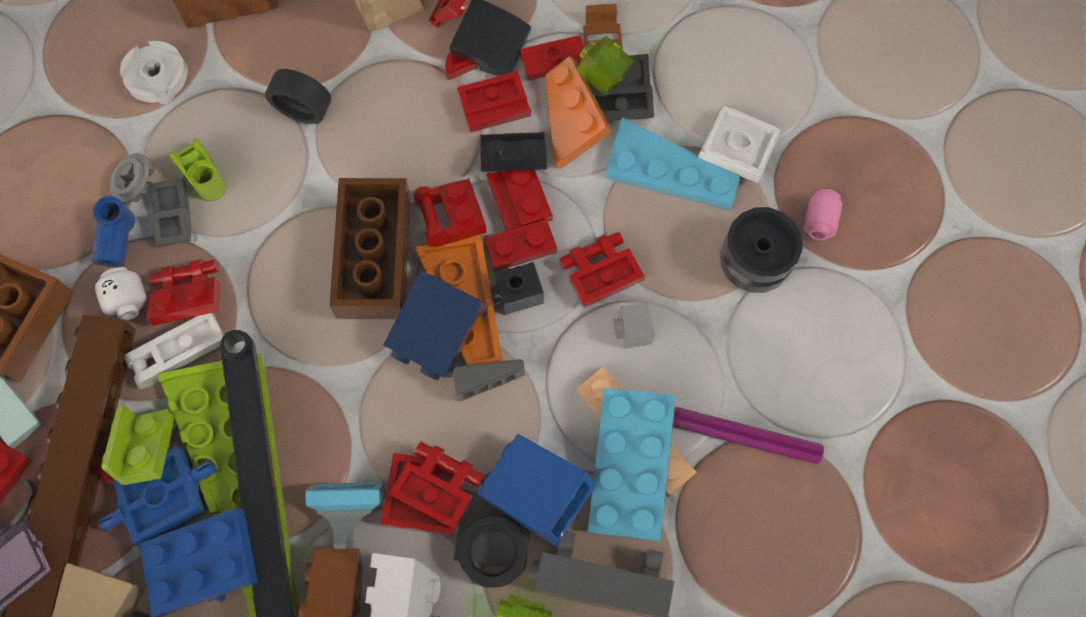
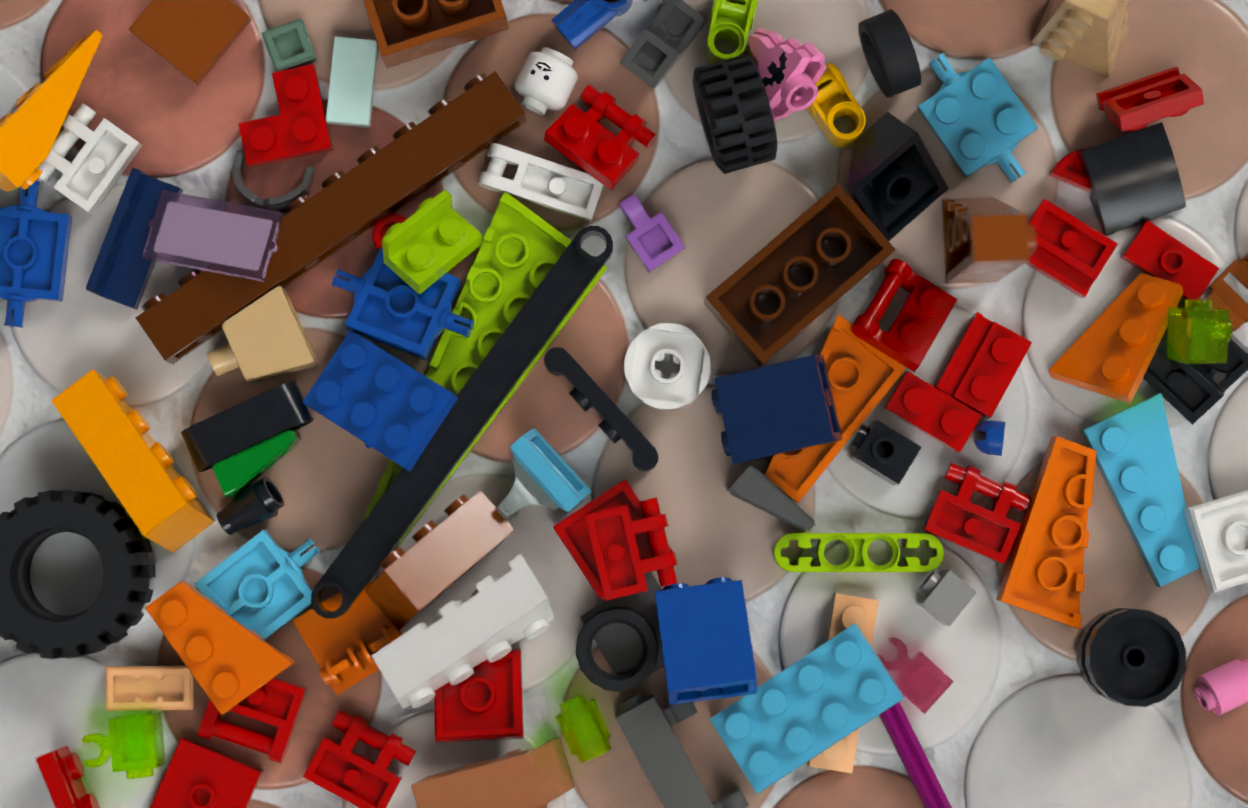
camera: 45 degrees right, 15 degrees up
(244, 200) = (735, 113): none -> black tyre
(252, 157) = (787, 71): none -> bright pink rock
(269, 314) = (653, 238): none -> medium lavender plate
(292, 153) = (836, 101): none -> yellow piece
(323, 429) = (589, 395): none -> black plate
(356, 351) = (687, 352): none -> white plate
(366, 148) = (893, 175): none -> black slope
(380, 87) = (977, 117): none -> medium azure plate
(447, 124) = (984, 239): none -> dark orange wedge
(513, 152) = (1023, 319): black plate -> none
(565, 223) = (994, 437): none -> blue hinge
(567, 357) = (858, 547): none -> lime beam
(659, 249) = (1051, 543): none -> orange wing
(670, 381) = (917, 678): none -> clear pink plate

